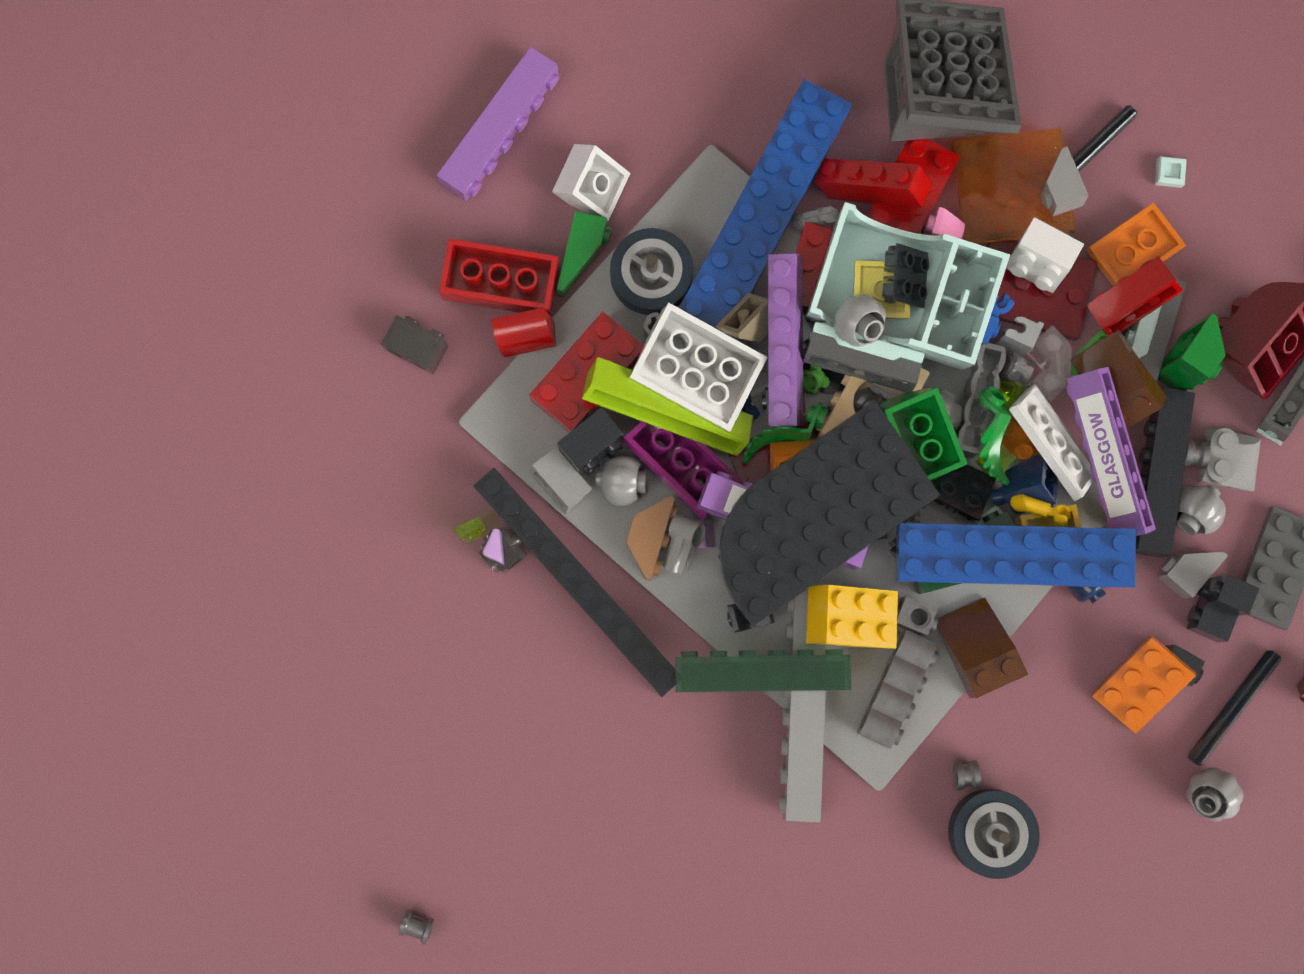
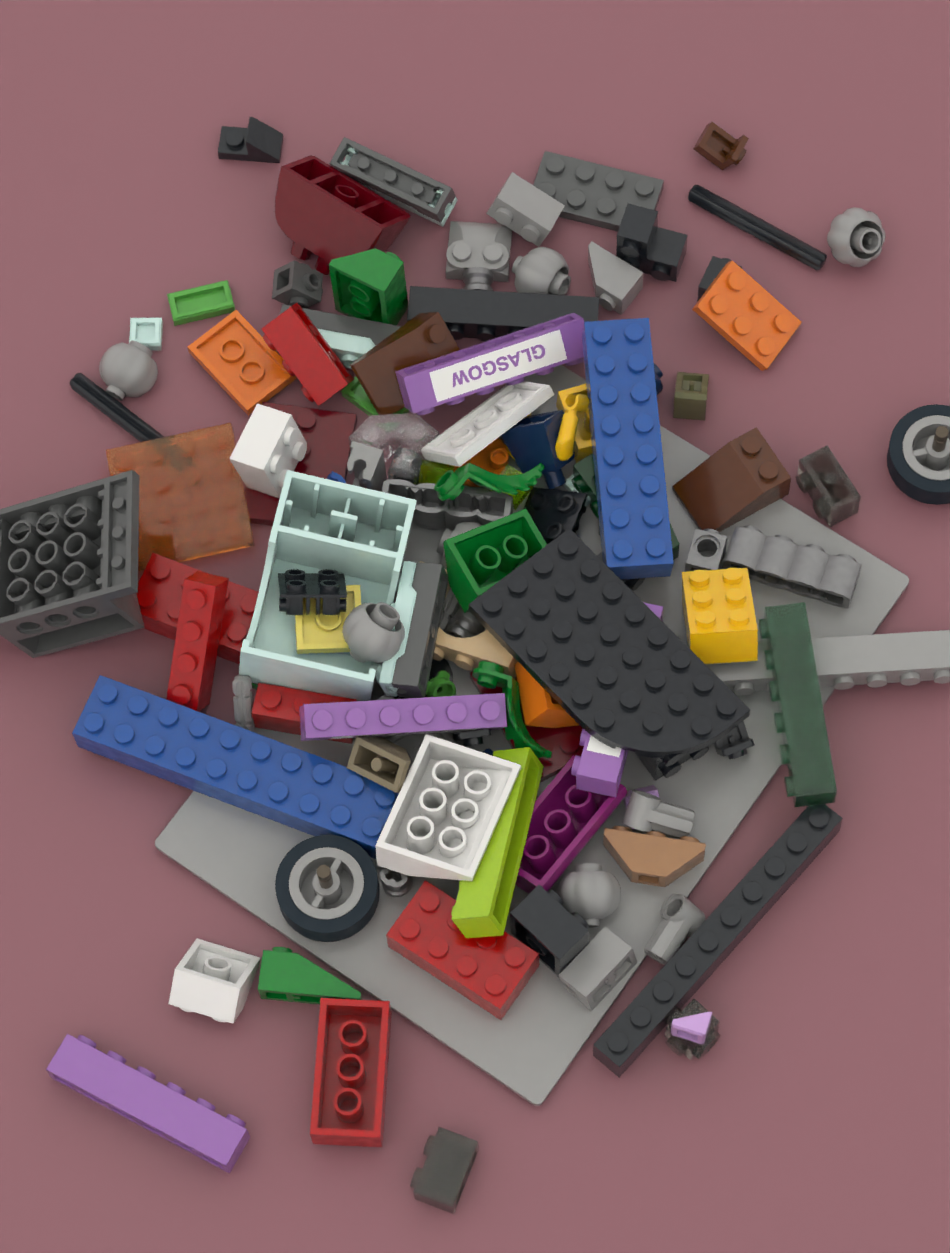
camera: 85 degrees left, 15 degrees down
(470, 530) = (671, 1071): clear neon green plate -> none
(524, 332) = (418, 1033): red brick -> none
(593, 550) = (679, 921): none -> light grey piece
(943, 223) = (245, 564): bright pink slope -> none
(966, 775) = (876, 489): flat silver wheel -> none
(970, 732) = (828, 486): none -> clear smoke brick
(1064, 186) = (181, 436): light grey slope -> none
(1073, 625) = (690, 396): none -> olive slope
(1135, 152) = (128, 370): none -> light grey plant
(1196, 219) = (201, 302): none -> bright green tile
(1203, 297) = (297, 283): none -> dark grey brick
(1264, 501) = (525, 209): none -> light grey brick

